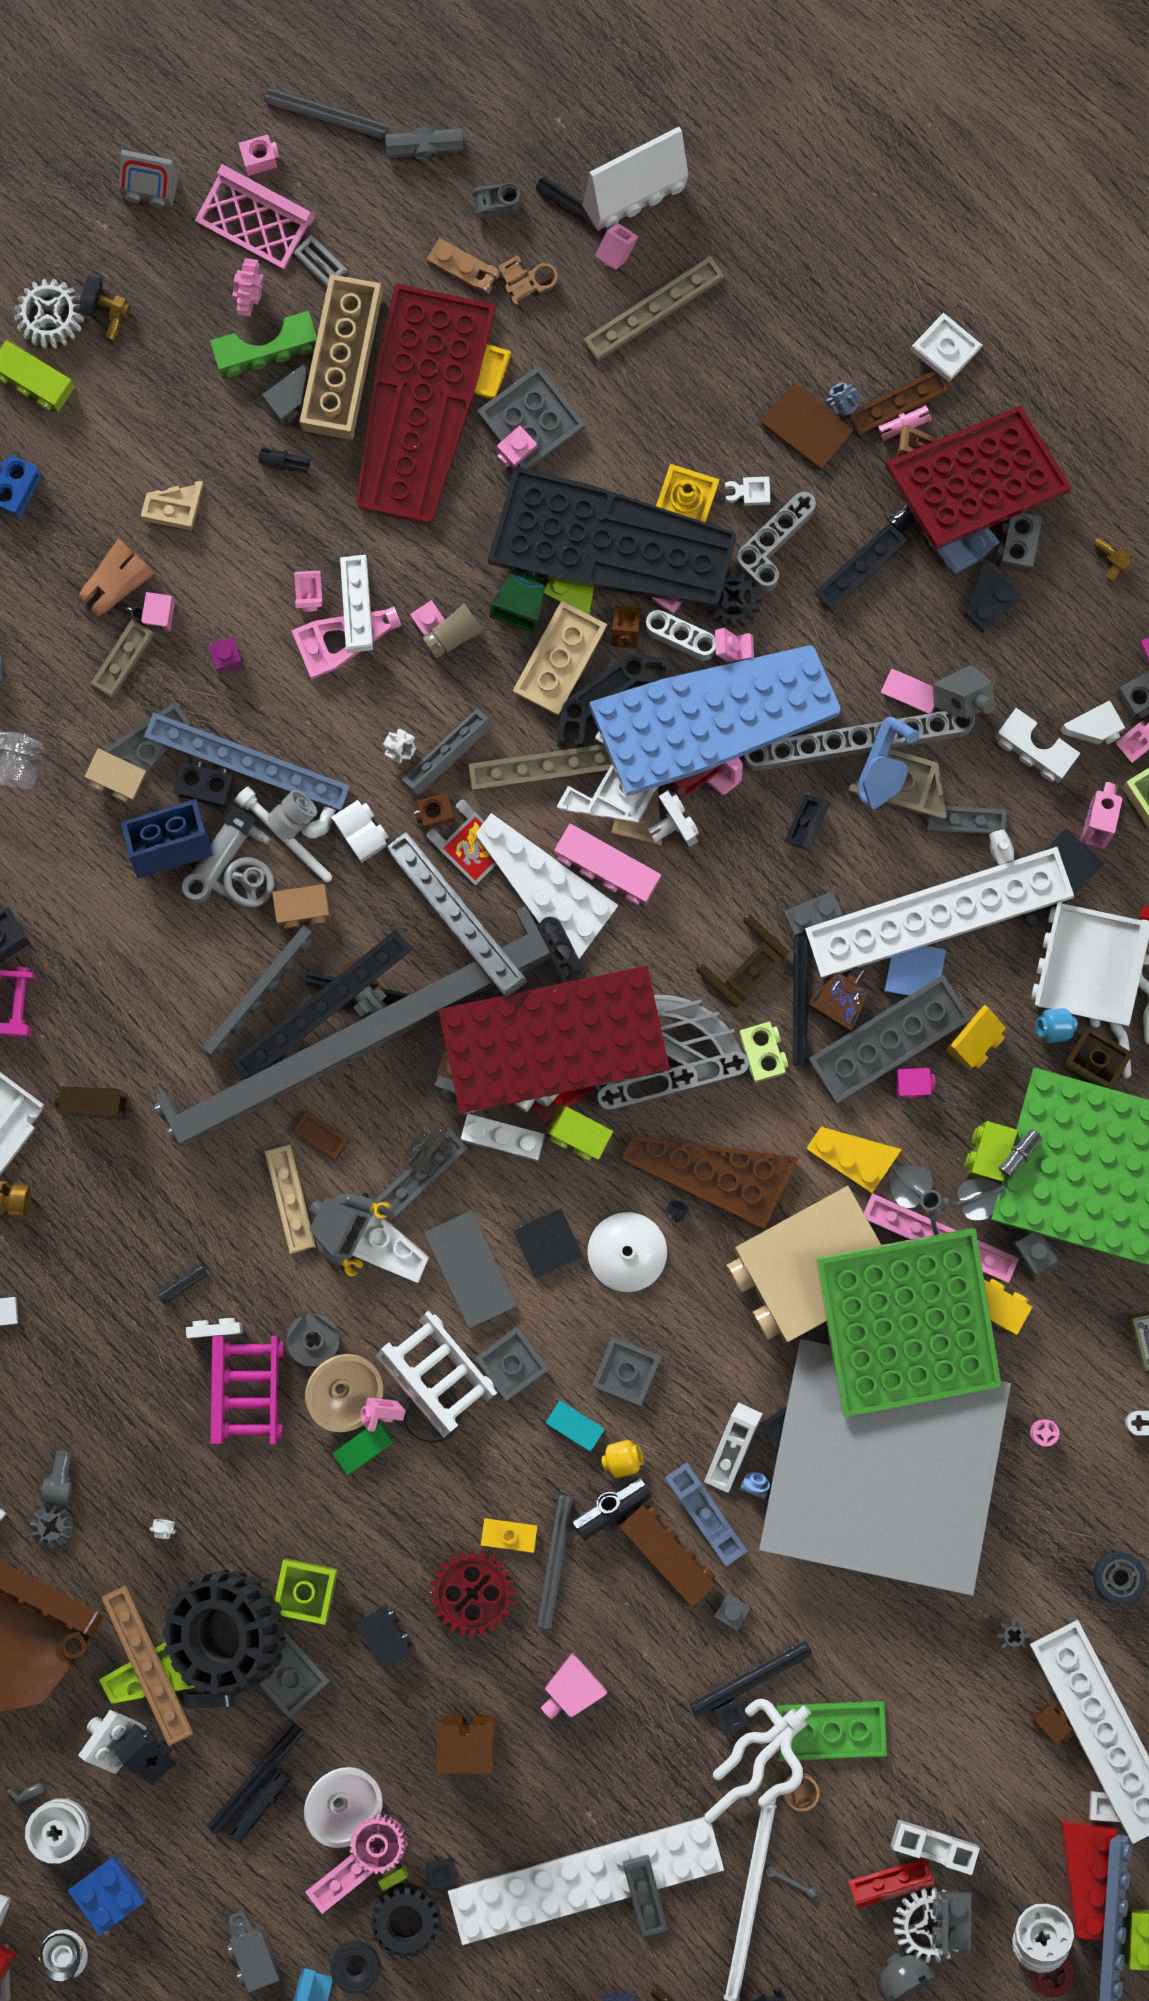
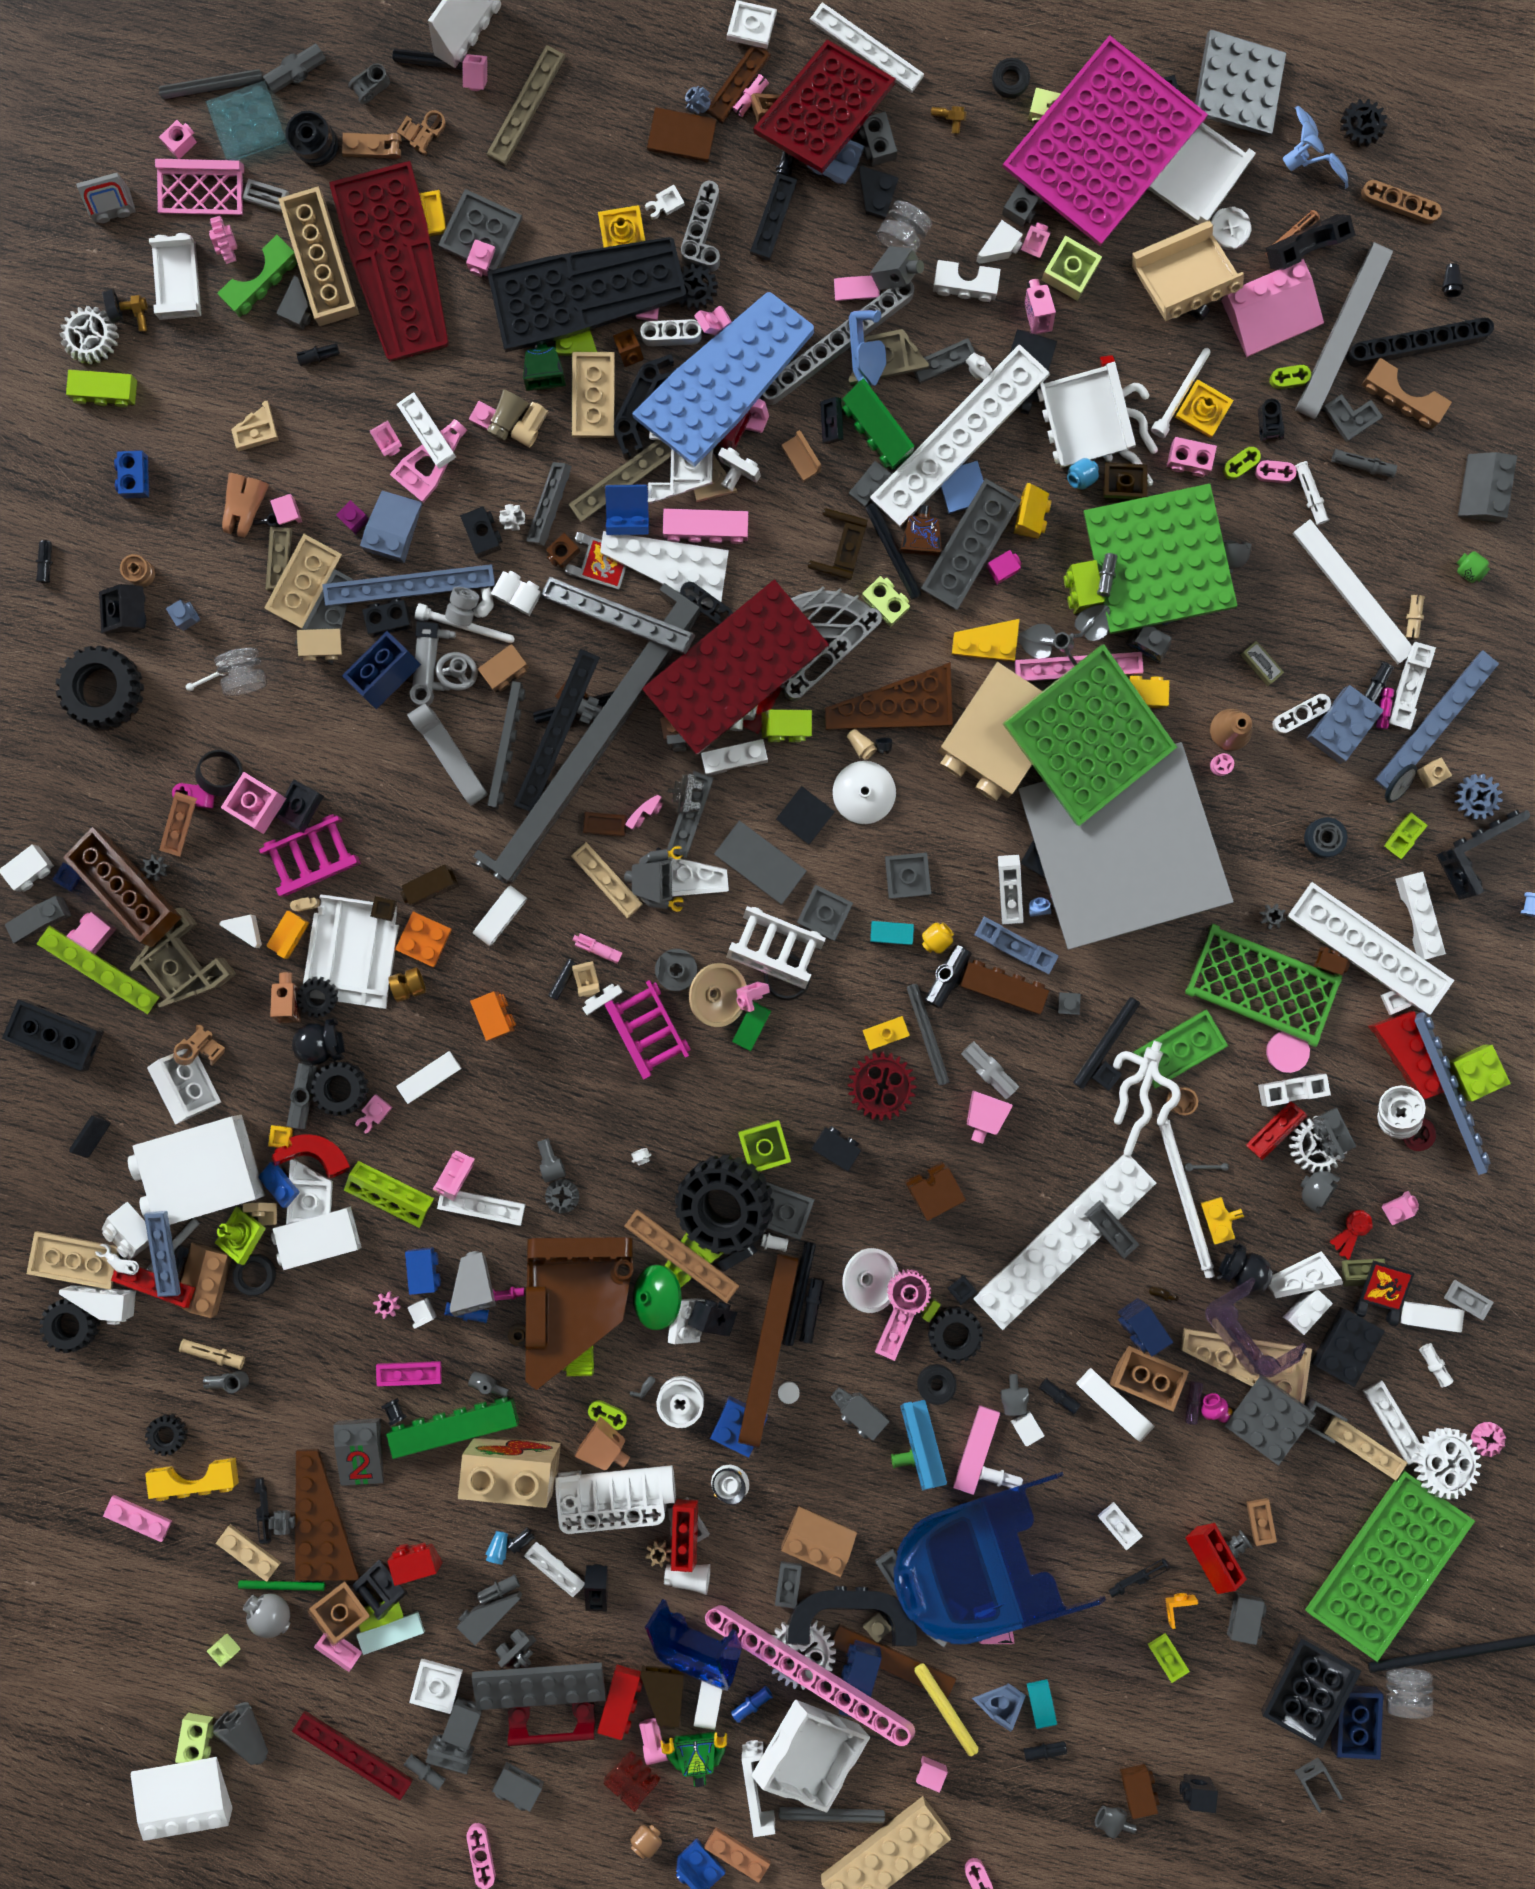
camera: 30 degrees left, 5 degrees up
(27, 1101) = (383, 908): none -> dark brown tile
(54, 1157) = (423, 939): none -> orange plate
(83, 1283) = (493, 1015): none -> orange brick
(94, 1697) = (657, 1297): none -> green dish
(134, 697) = (302, 581): none -> tan plate
(151, 1176) = (499, 915): none -> white beam
(176, 299) = (175, 276): none -> white panel
(184, 1885) = (788, 1392): none -> white tile
(185, 1825) = (768, 1350): none -> reddish brown beam
(186, 923) = (432, 729): none -> light grey beam
(208, 1297) = (586, 979): none -> tan bracket
(239, 1269) = (591, 945): none -> bright pink piece
(258, 1706) = (774, 1242): none -> white pin
(263, 687) = (391, 526): none -> sand blue slope
(342, 172) = (246, 121): none -> clear light blue plate
(353, 729) = (481, 544): none -> black brick
(380, 1143) = (649, 807): none -> bright pink slope
(401, 228) = (312, 138): none -> black wheel
(466, 659) = (527, 429): none -> tan piece
(529, 803) = (627, 510): none -> blue bracket
(602, 1640) = (989, 1070): none -> light grey piece
(651, 1197) = (863, 746): none -> tan cone
(753, 845) = (802, 456): none -> medium nougat panel
(774, 1951) = (1220, 1220): none -> yellow plate
(854, 854) = (877, 425): none -> green slope
(944, 1749) = (1313, 1040): none -> bright green door
(952, 1799) = (1287, 1052): none -> bright pink tile
(1000, 651) = (904, 226): none -> clear wheel
(1060, 436) = (866, 47): none -> white tile
(1066, 1400) = (1231, 729): none -> medium nougat cone

